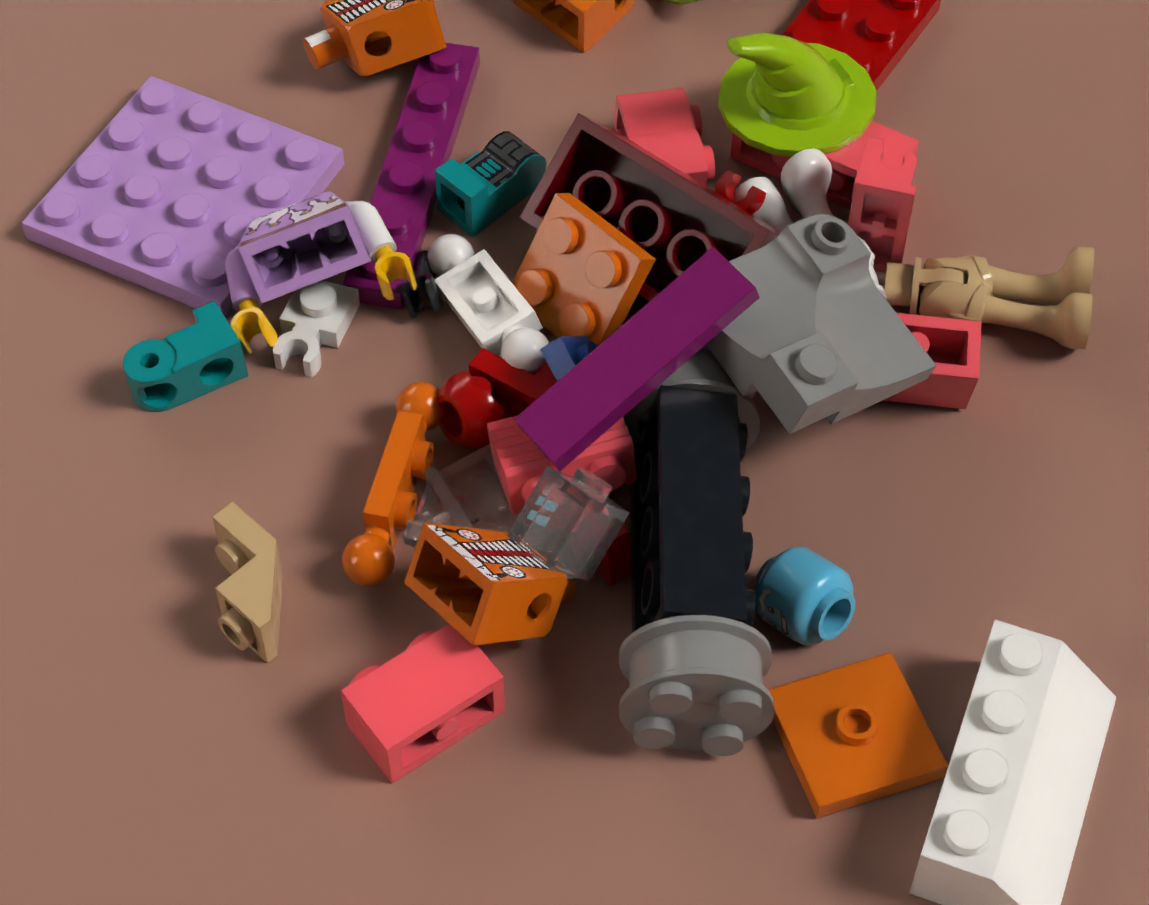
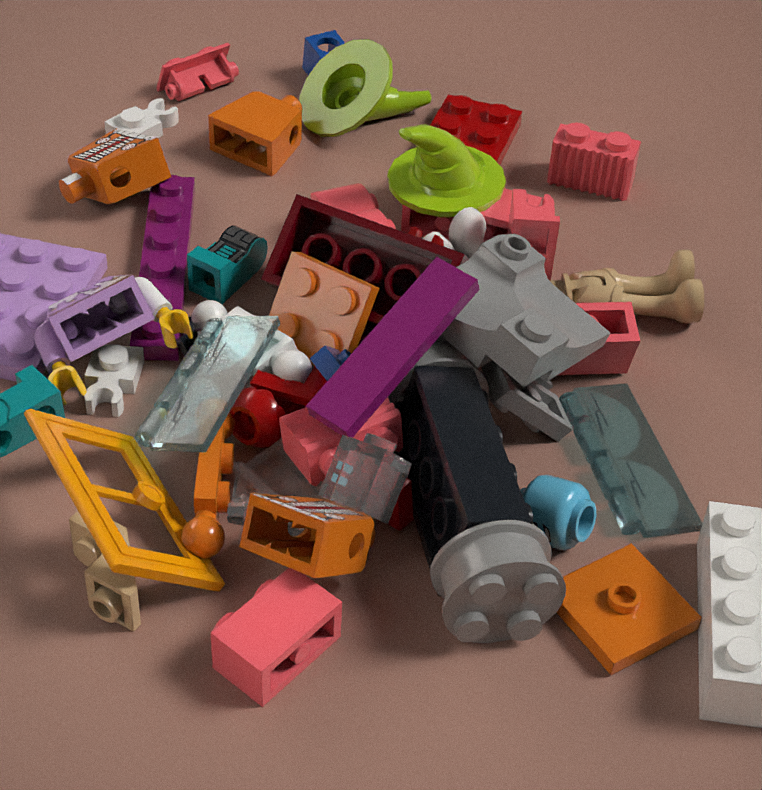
camera: 15 degrees left, 10 degrees down
(317, 496) = (148, 493): none -> light orange door
(417, 356) = (206, 384): none -> clear light blue windscreen
(822, 447) = (532, 403): none -> light grey plate
(926, 535) = (629, 462): none -> clear light blue windscreen
(1013, 88) = (593, 161): none -> coral brick

